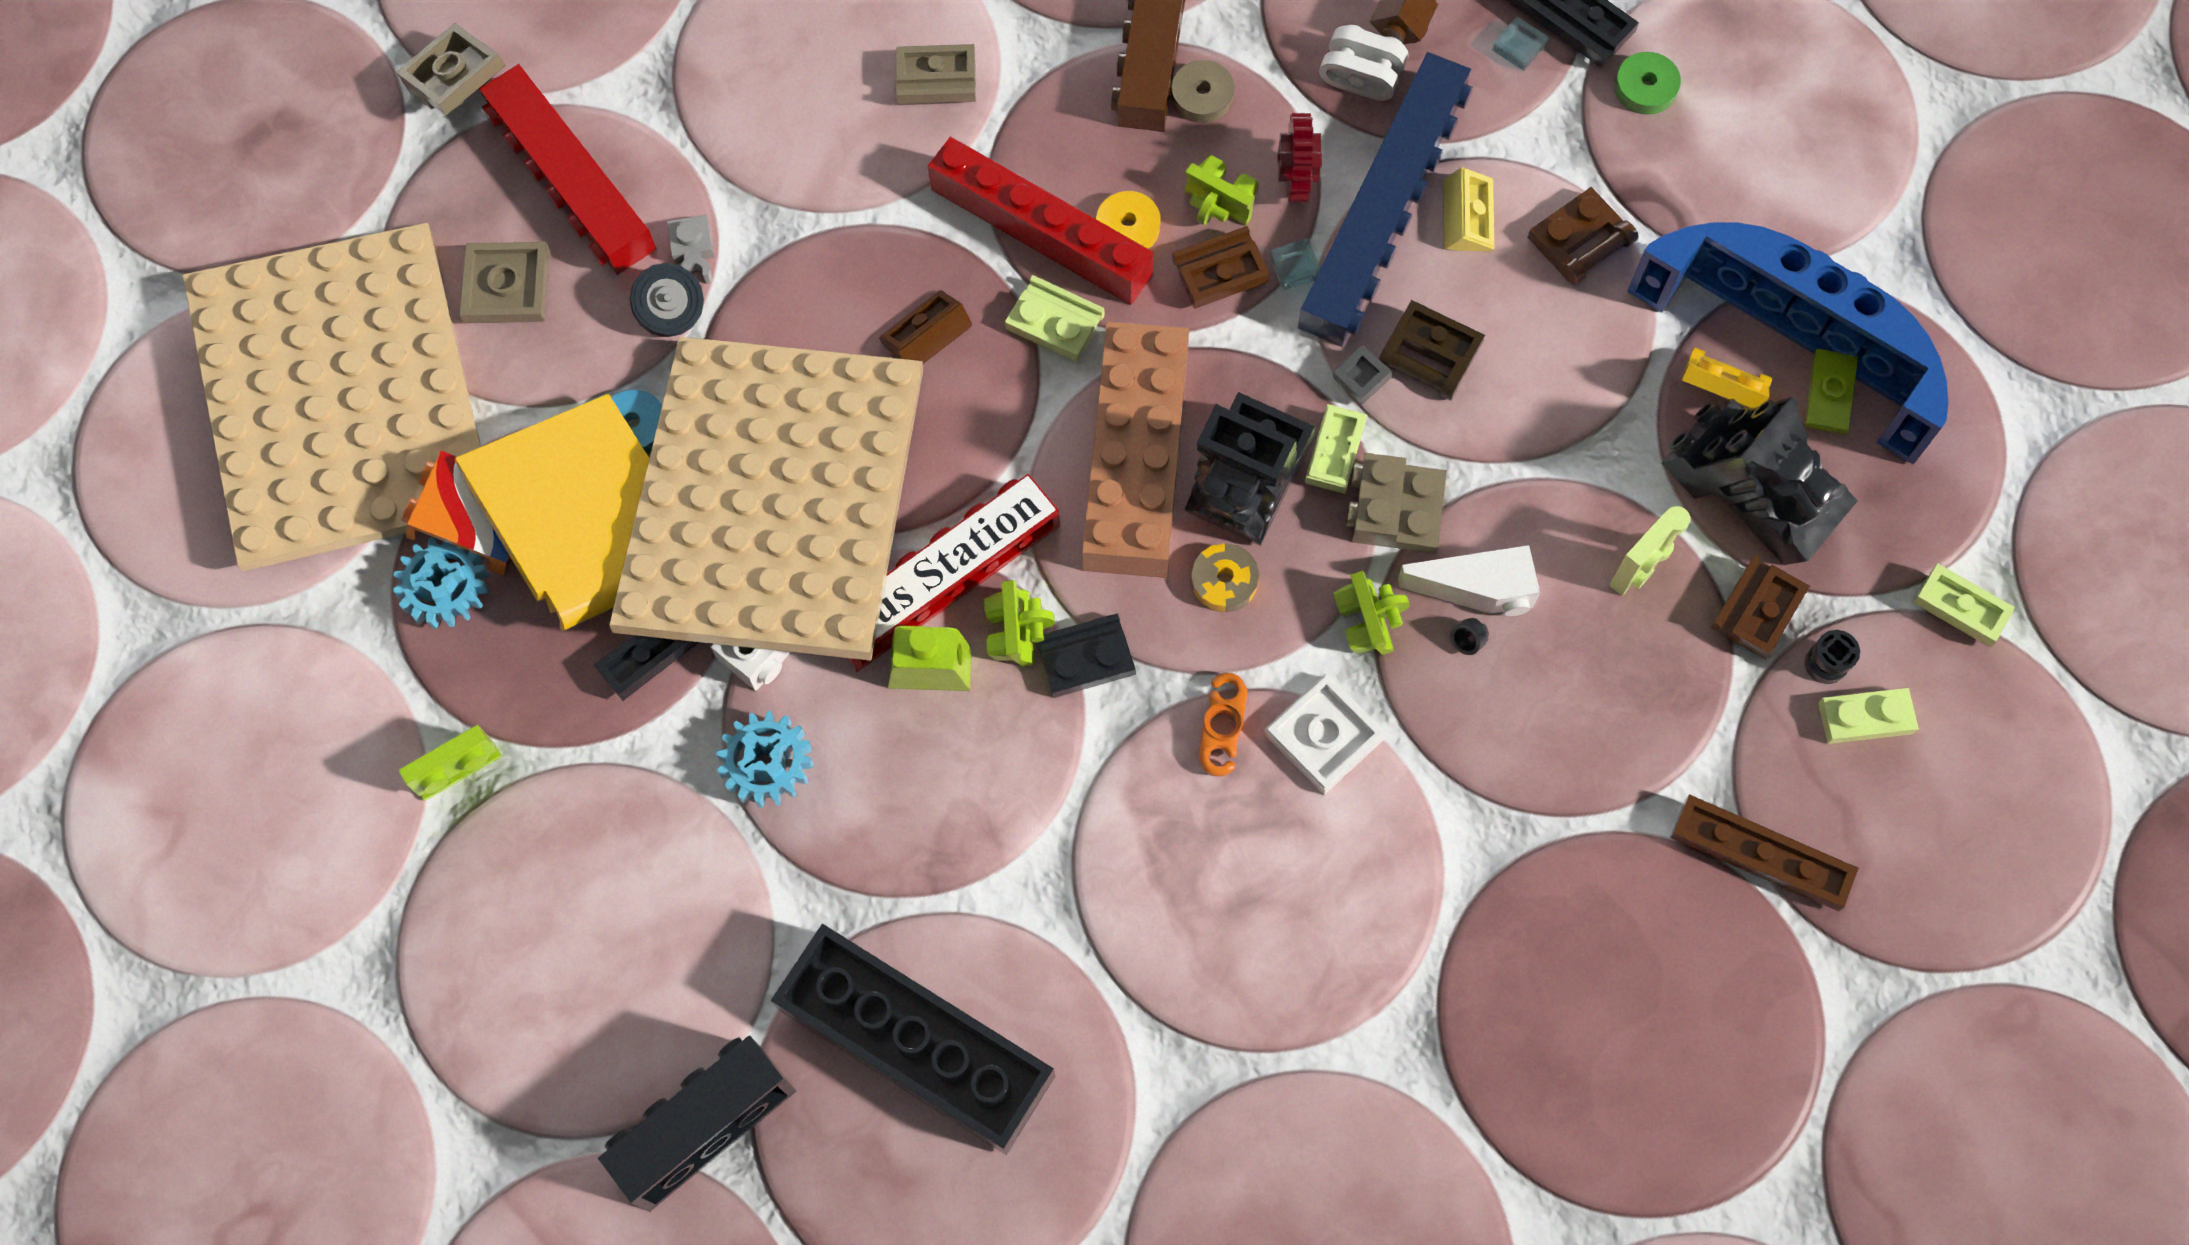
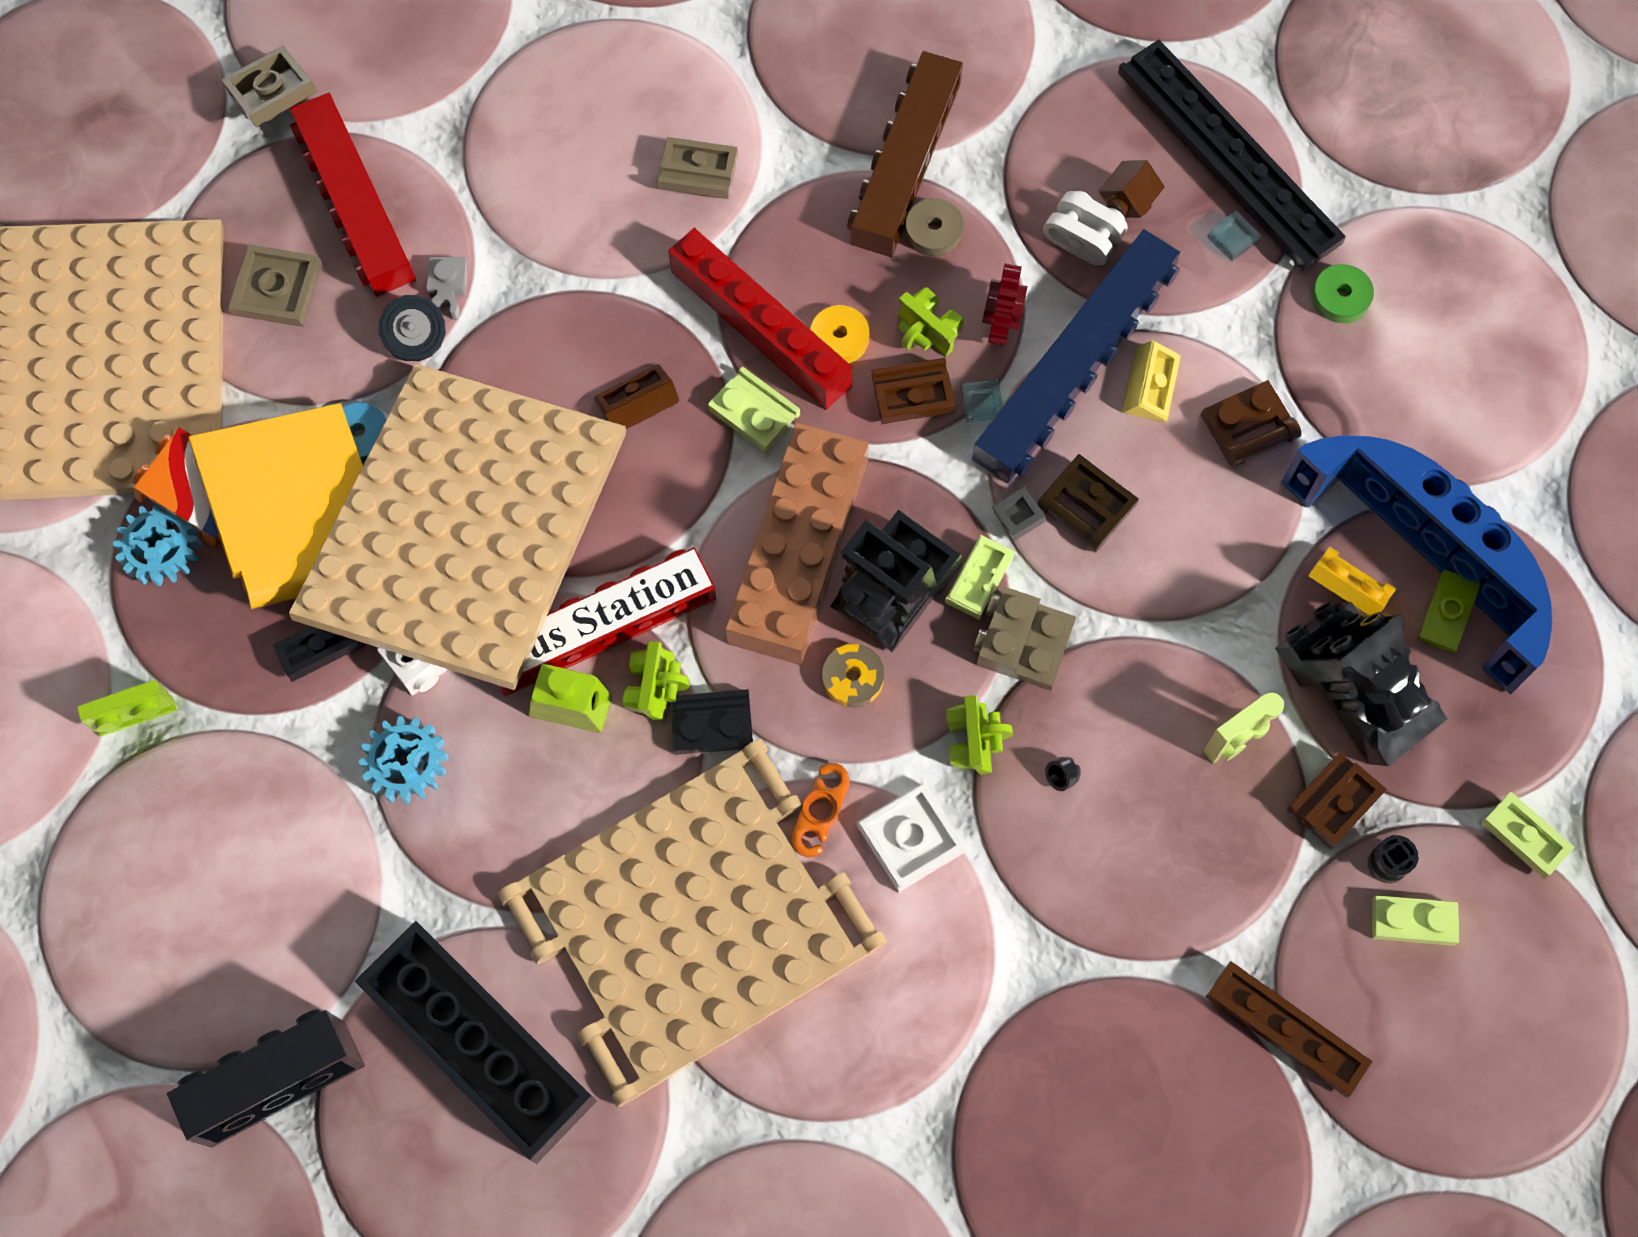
camera: 10 degrees right, 0 degrees up
(1112, 868) = (691, 921): none -> tan plate
(1481, 581) = (1086, 725): white slope -> none

